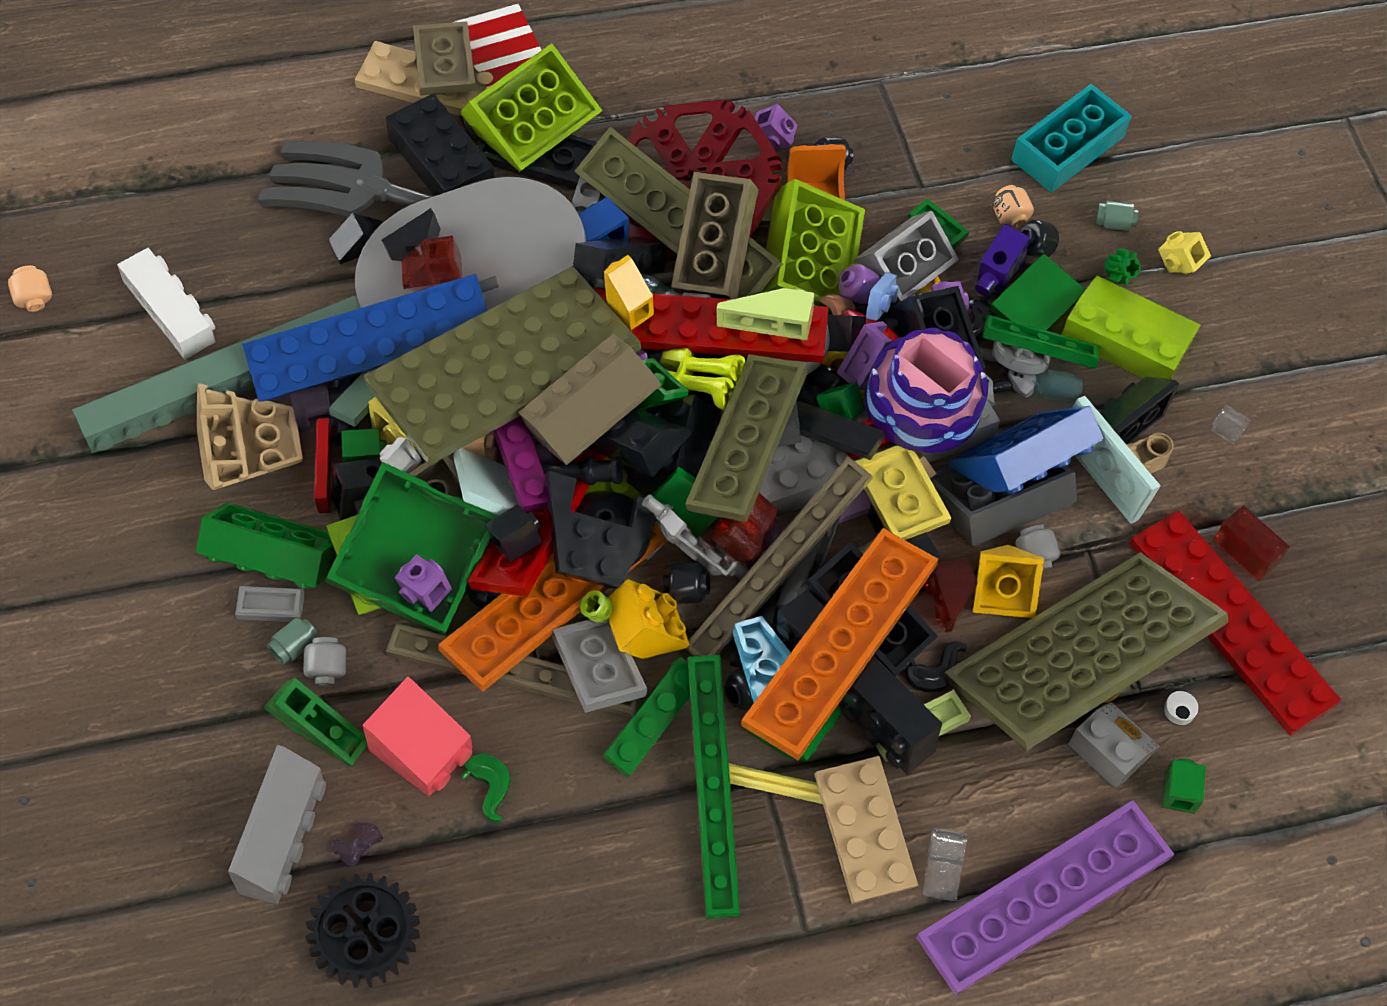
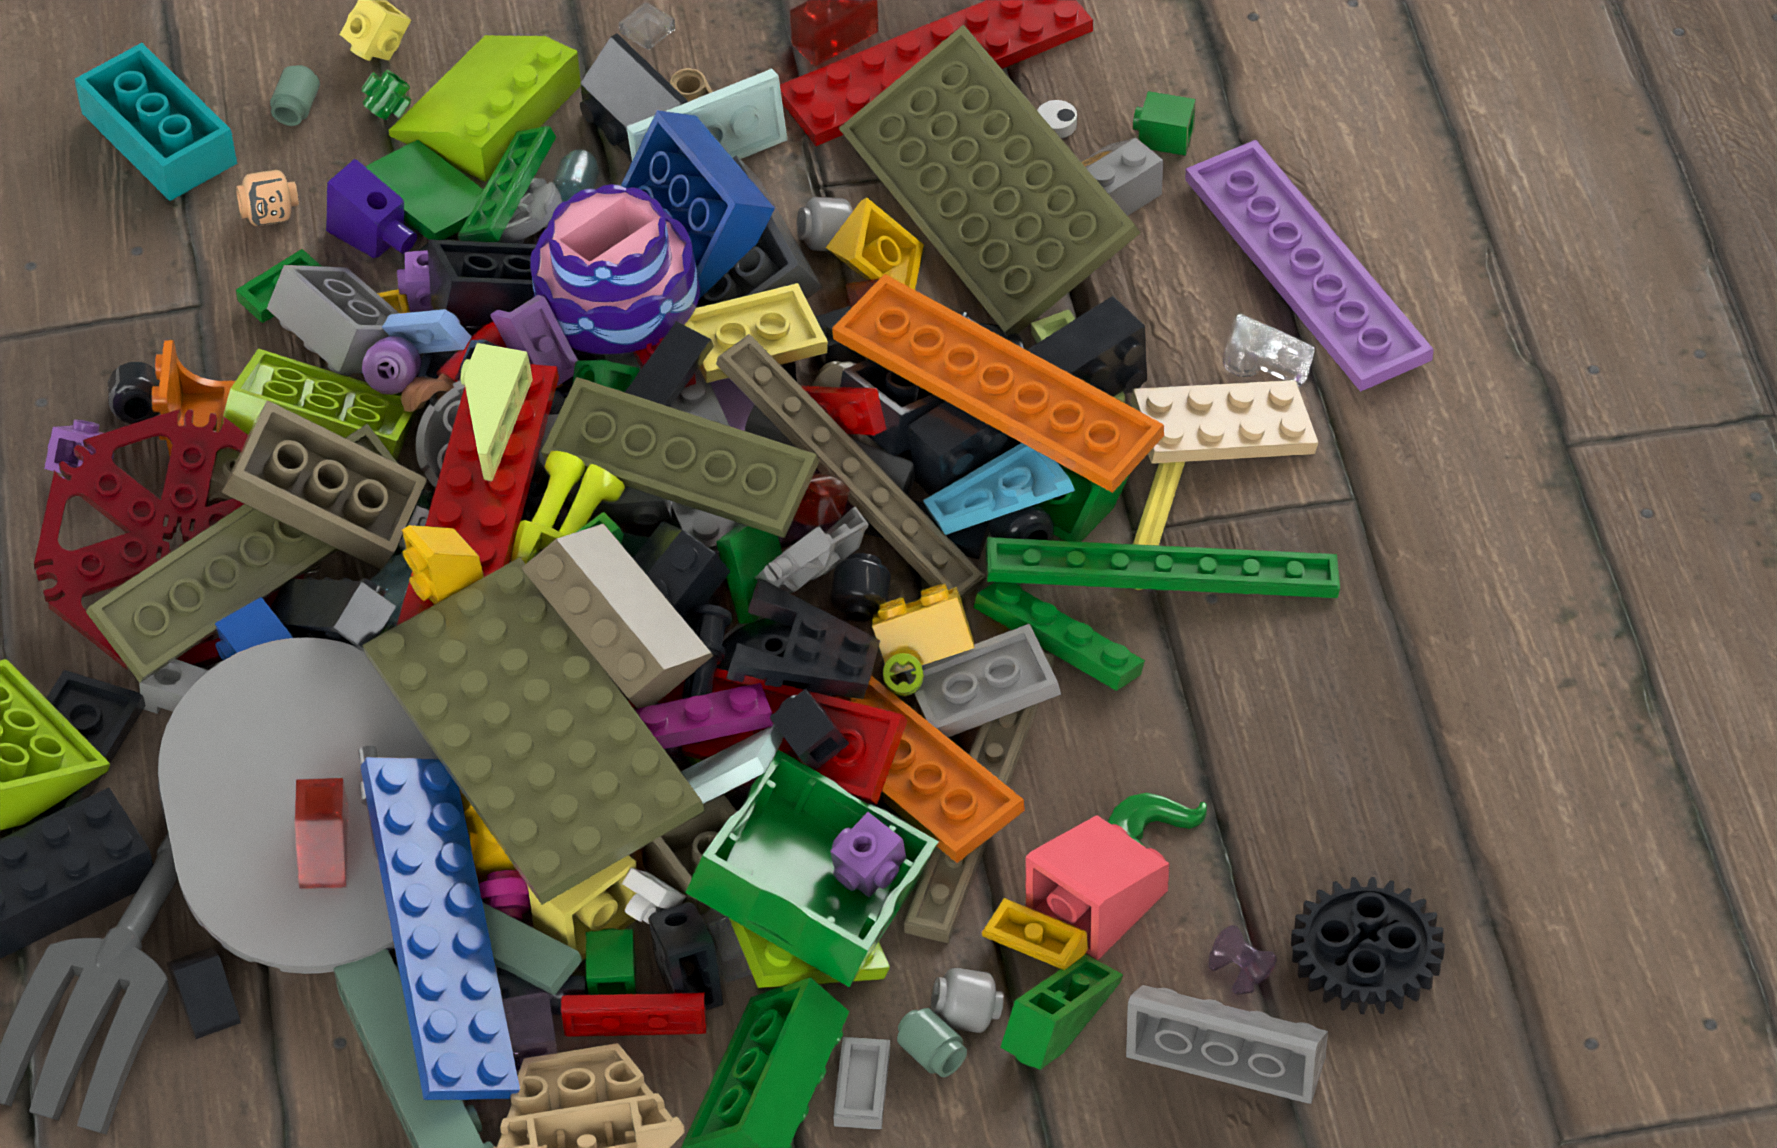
camera: 80 degrees left, 10 degrees down
(372, 696) = (1036, 934): none -> yellow slope
(409, 236) = (267, 857): black slope -> none
(831, 546) = (851, 408): none -> red plate
(1043, 237) = (317, 165): black head -> none

